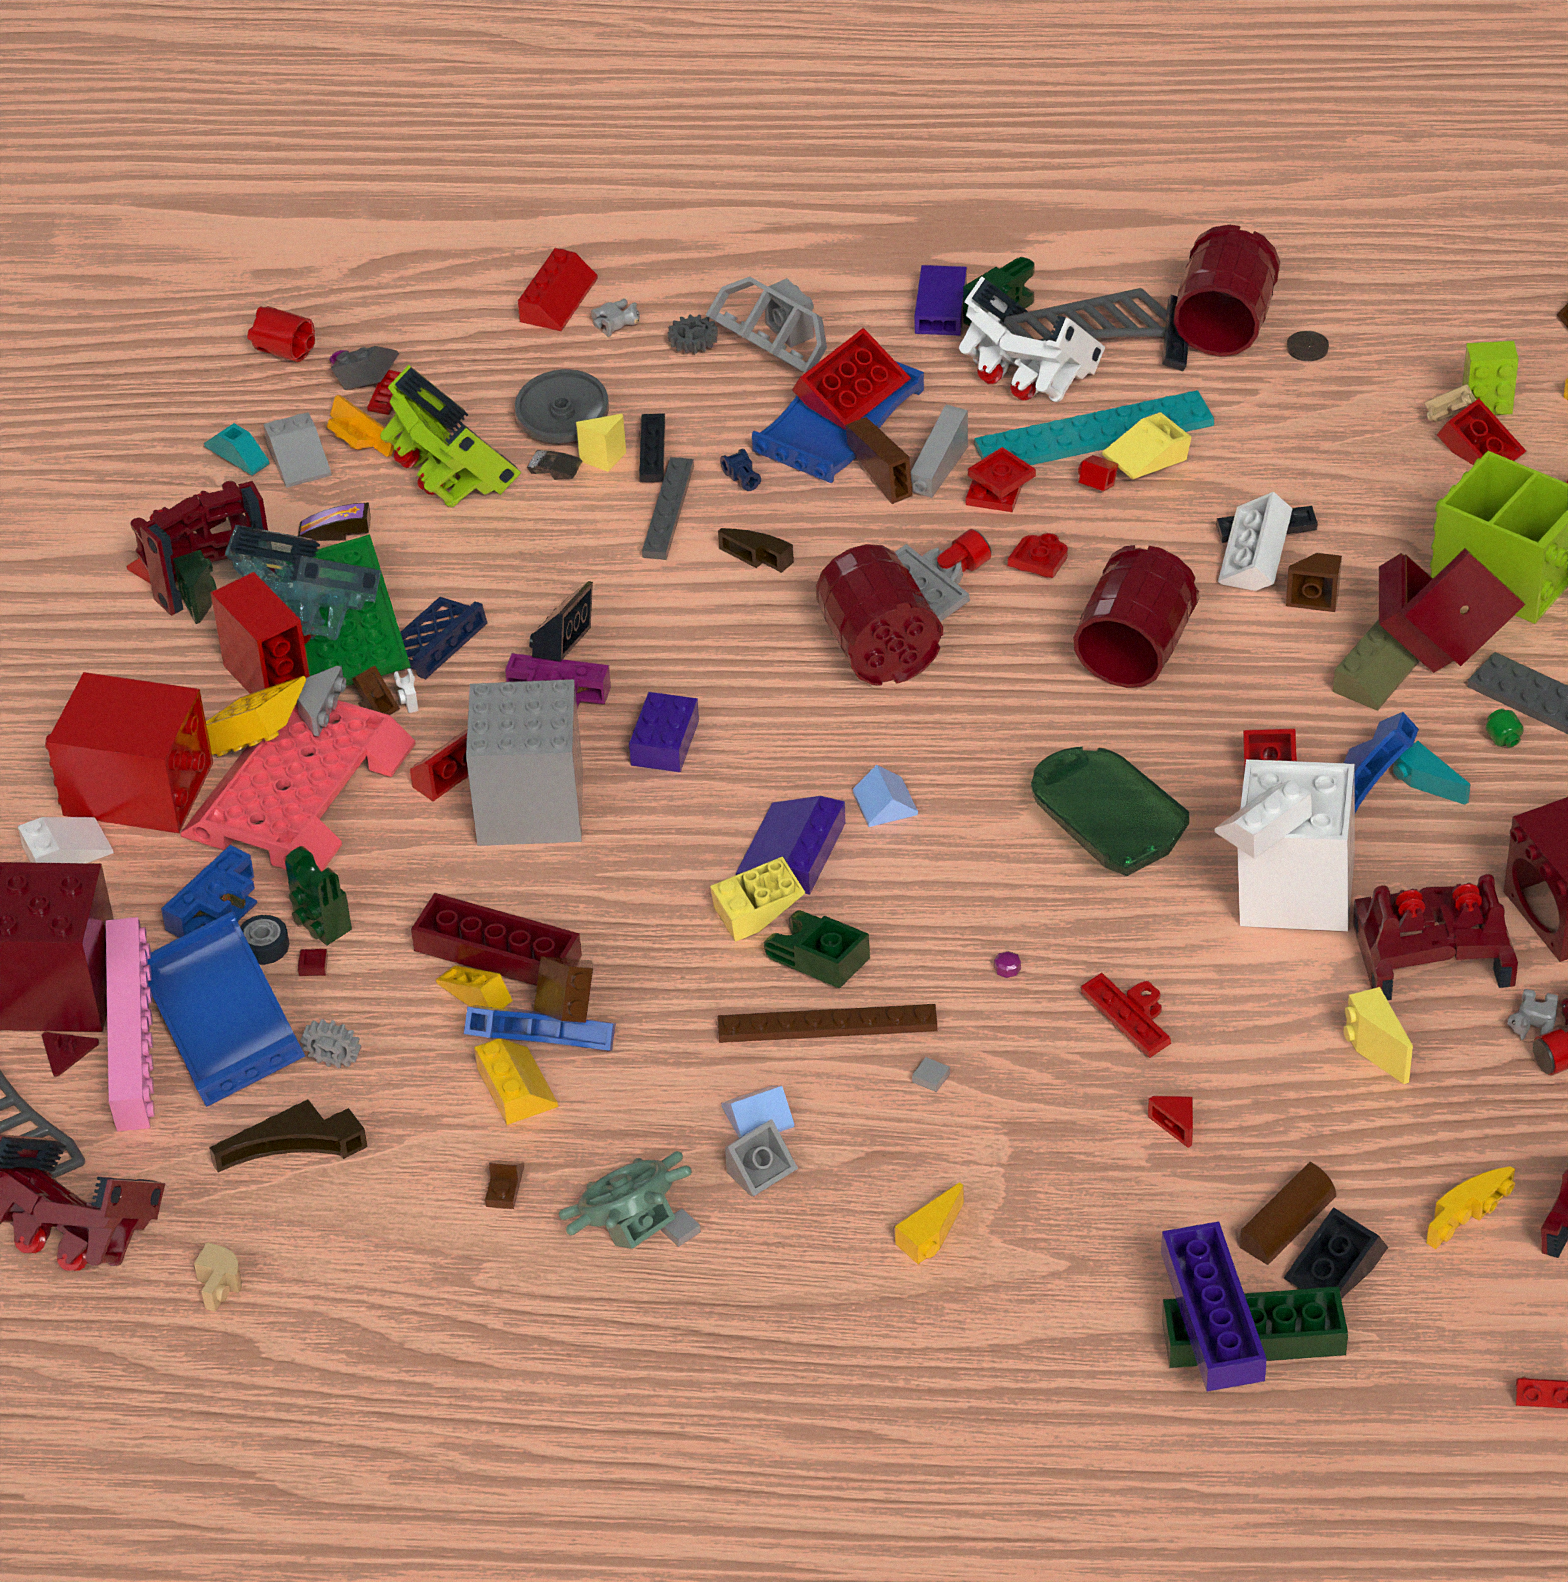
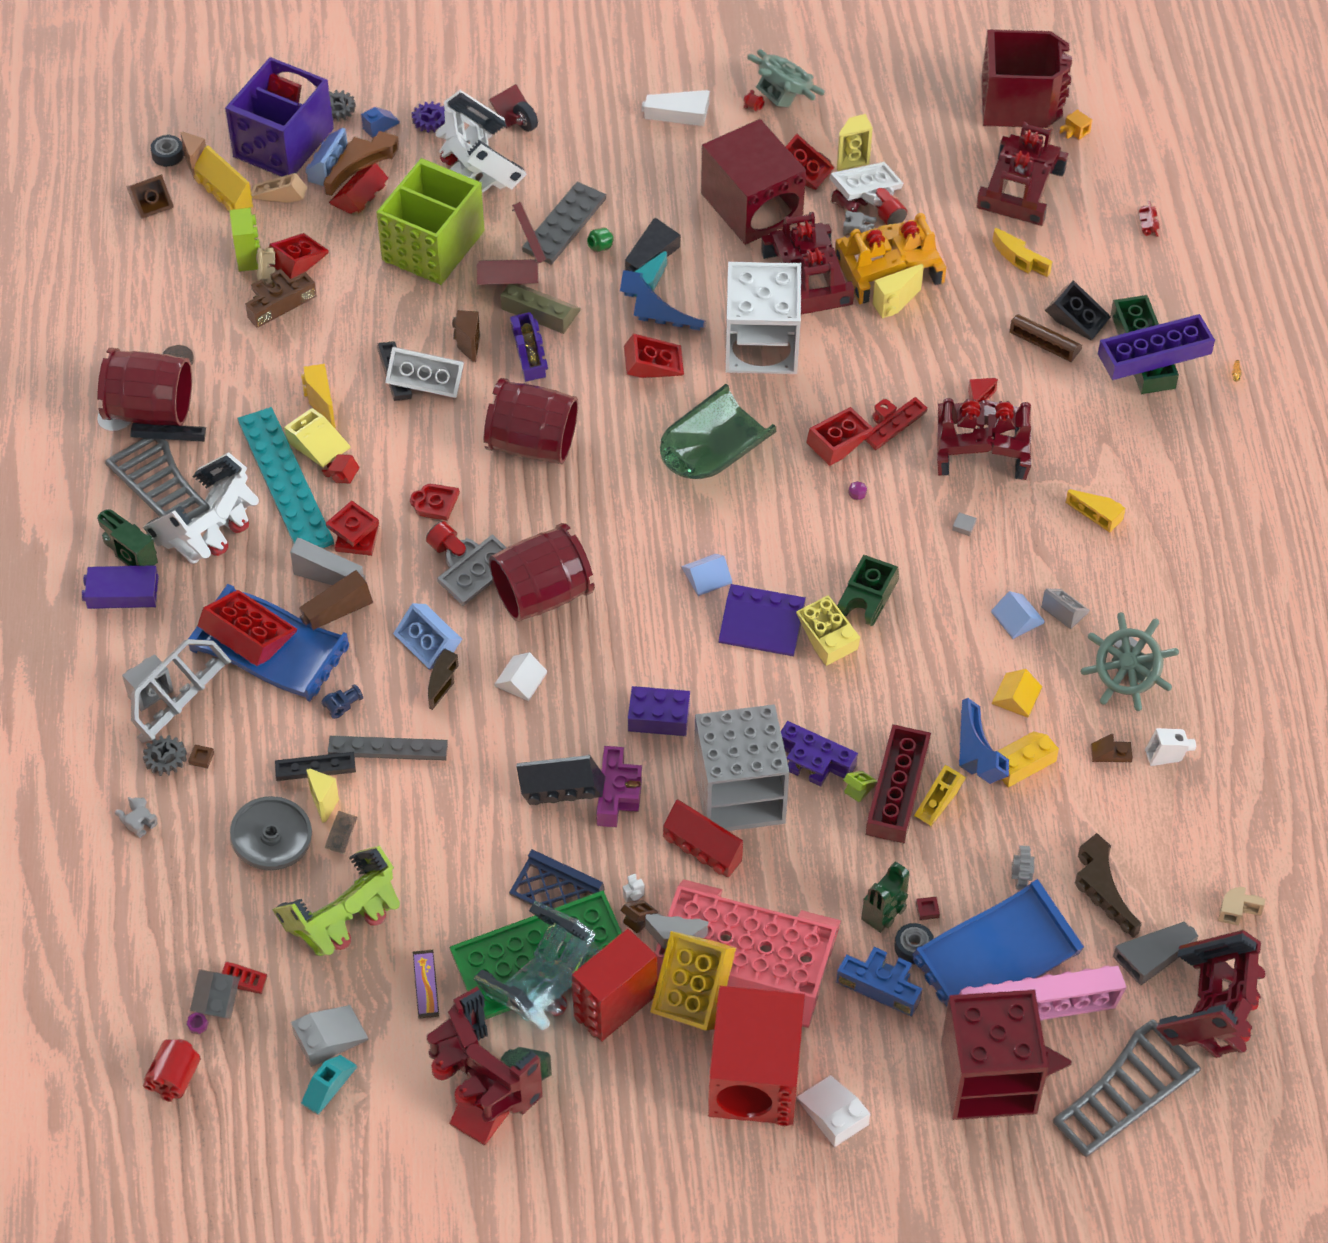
camera: 100 degrees left, 10 degrees up
(173, 1161) = (1153, 952): none -> dark grey slope
(357, 427) = (296, 989): light orange bracket -> none
(486, 1232) = (1168, 746): none -> white torso
(508, 900) = (859, 785): none -> lime slope
(556, 290) = (100, 868): red slope -> none
(563, 869) = (816, 754): none -> dark purple piece
(564, 988) = (957, 715): reddish brown slope -> none
(620, 1094) = (1018, 692): none -> yellow slope
(689, 365) = (201, 756): none -> reddish brown tile
(746, 620) = (521, 676): none -> white slope
(827, 1023) = (929, 586): reddish brown plate -> none
(828, 540) = (426, 634): none -> light blue slope
(1075, 1077) = (999, 418): none -> dark red container
(1099, 939) = (838, 435): none -> red slope
(1200, 1455) = (1236, 372): none -> clear yellow piece
(1218, 450) = (318, 390): none -> yellow slope
(1267, 818) = (790, 301): white slope -> none
(1298, 643) = (528, 346): none -> dark purple piece
(1397, 418) = (280, 298): none -> reddish brown piece
(1462, 1022) = (877, 242): none -> light orange container
(1494, 784) = (654, 241): none -> black slope

